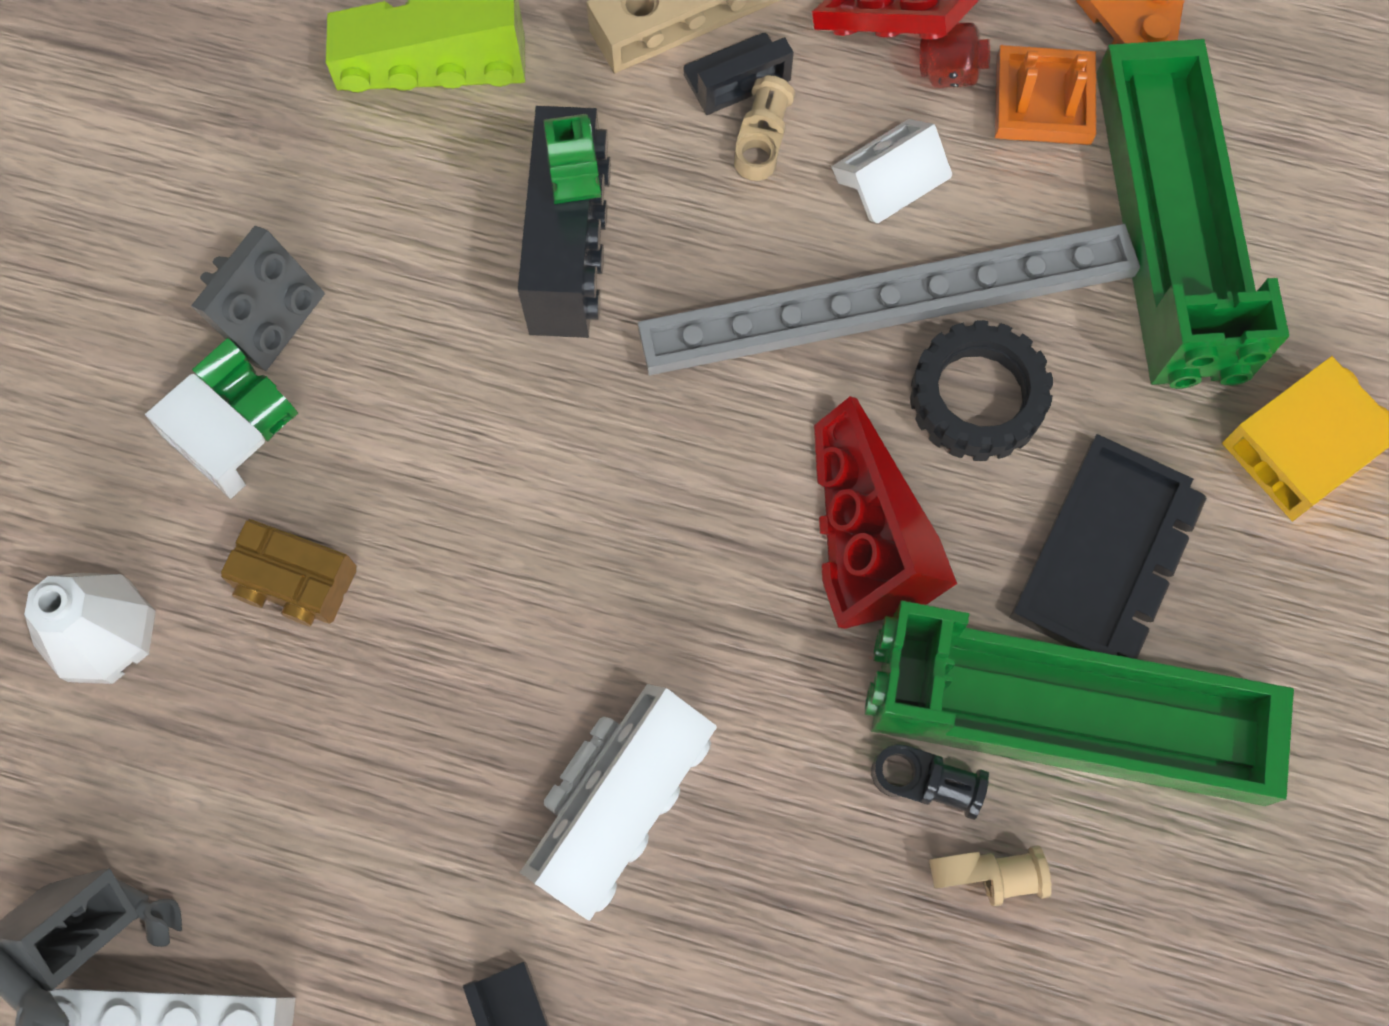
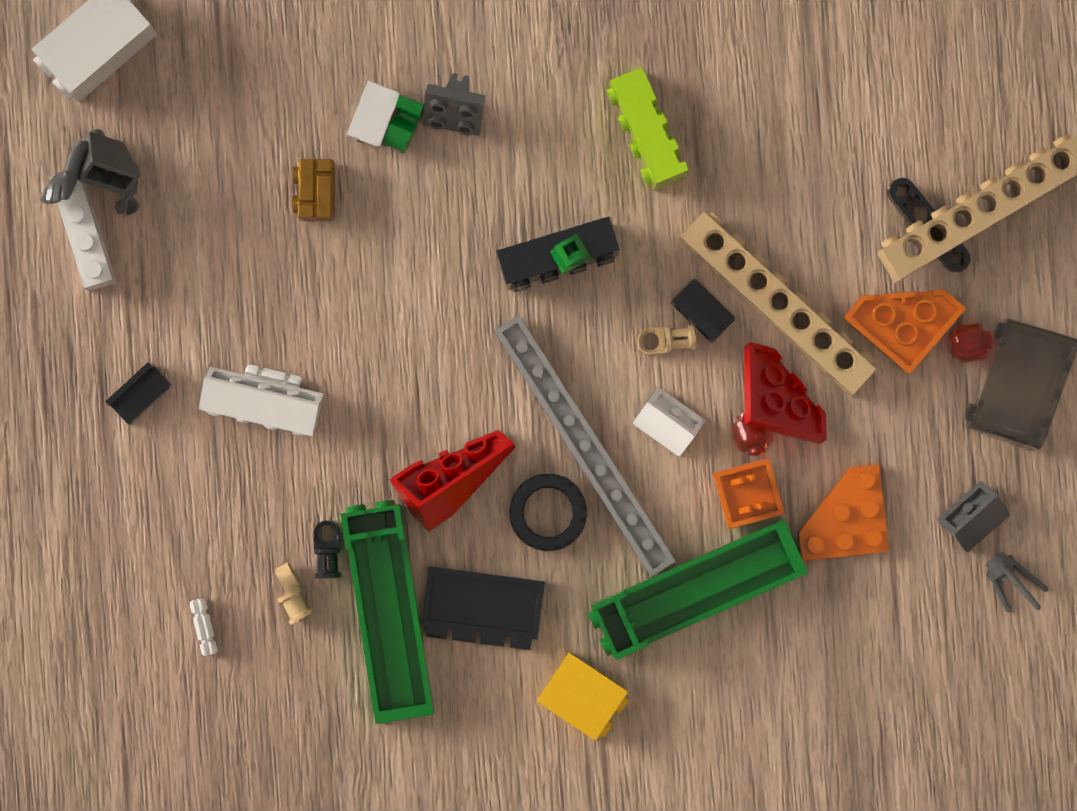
camera: 65 degrees right, 15 degrees up
(89, 625) = (258, 112): white cone -> none

